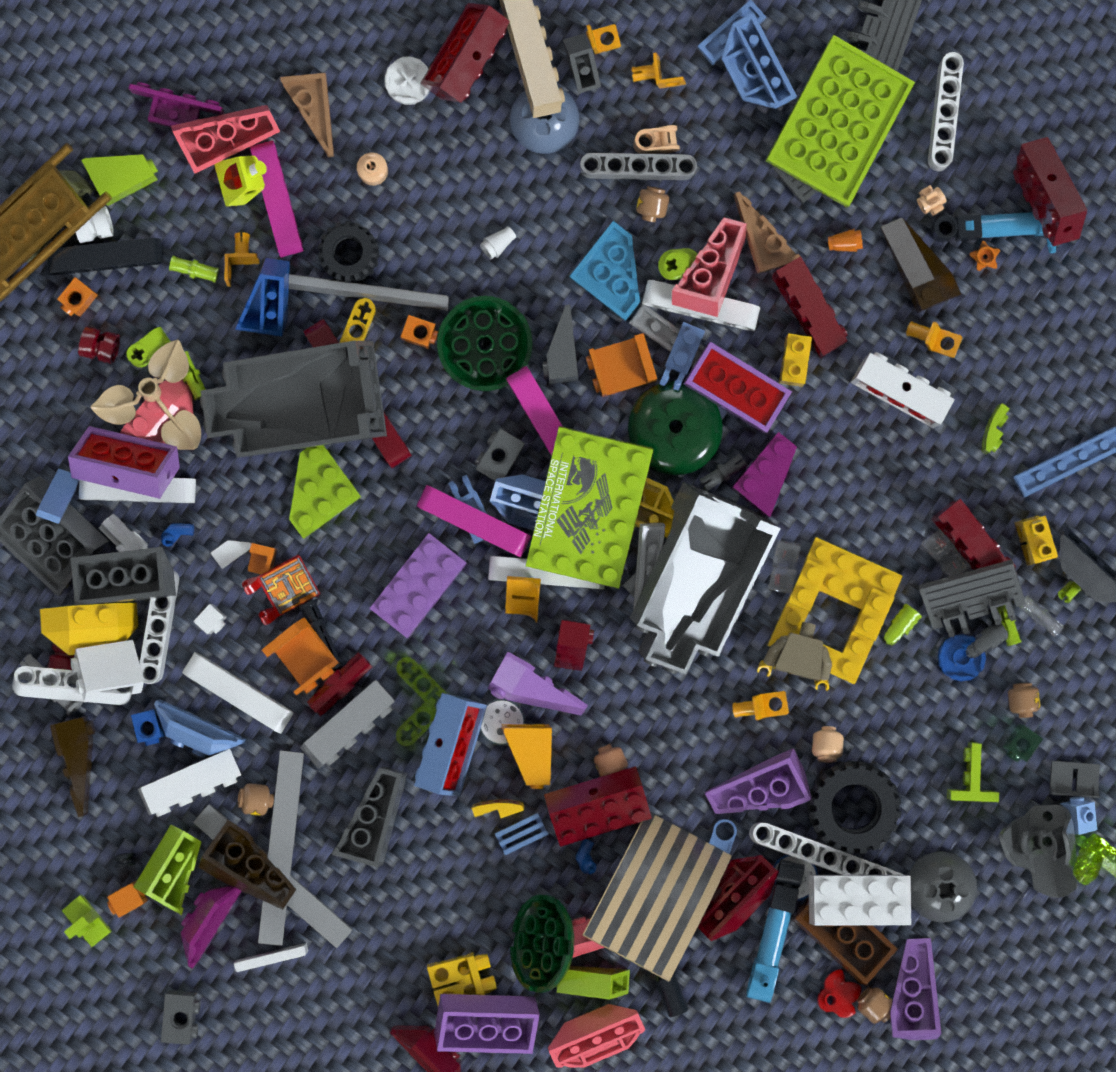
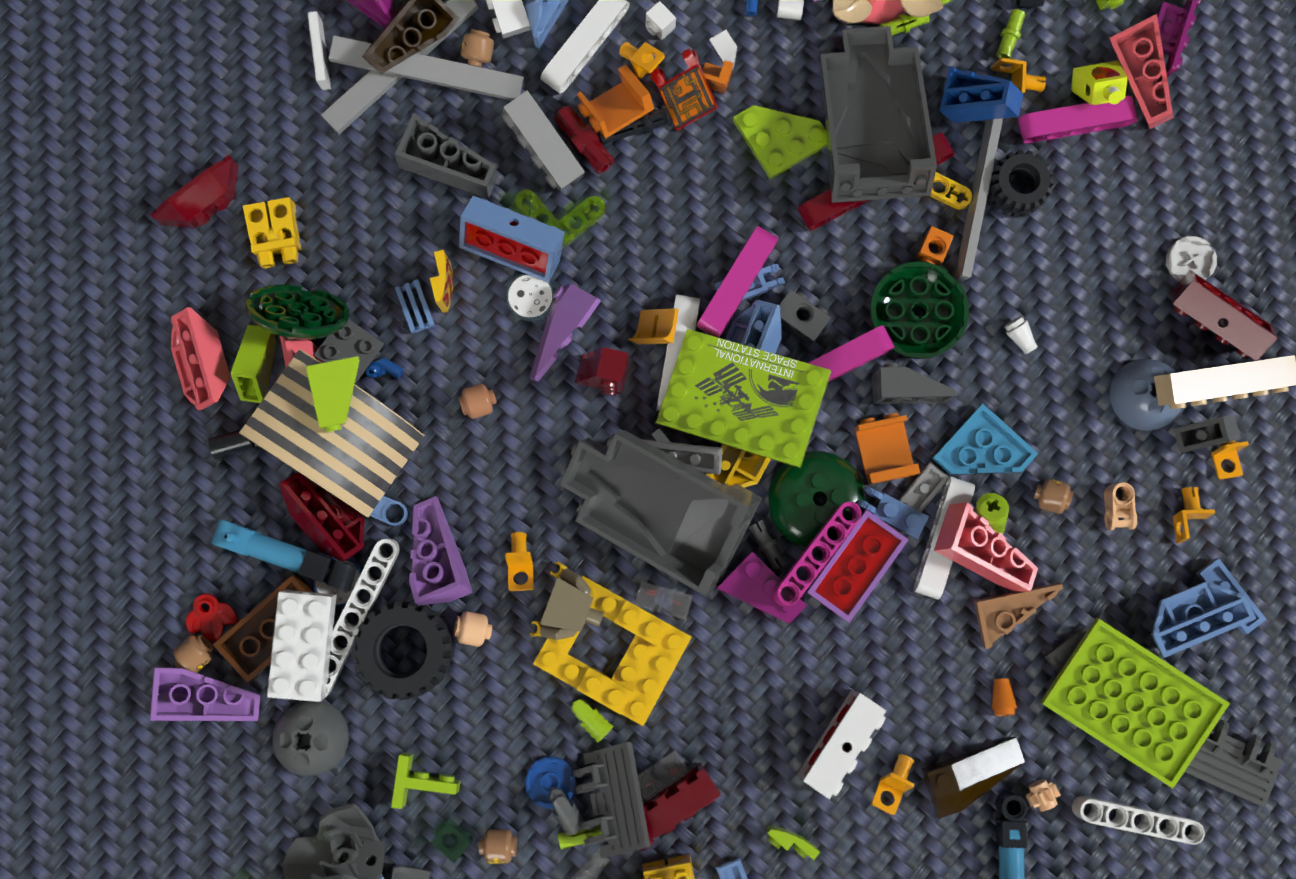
camera: 95 degrees right, 5 degrees down
(253, 634) = (641, 58): none -> light orange bracket
(312, 100) = (1178, 162): medium nougat wing -> none
(376, 162) = (1104, 214): light nougat head -> none
(418, 585) = (676, 224): medium lavender brick -> none
(486, 1023) = (223, 248): medium lavender brick -> none
(531, 751) = (496, 320): light orange slope -> none
(574, 889) = (349, 343): none -> dark grey hinge
(597, 806) = (432, 381): dark red brick -> none
(623, 895) = (332, 391): none -> lime slope
(649, 161) = (1101, 475): light grey beam -> none
(723, 417) = (827, 547): none -> dark pink beam
(795, 360) = (880, 631): yellow brick -> none
(810, 307) = (937, 651): dark red wedge -> none
(991, 256) = (981, 855): orange plate -> none

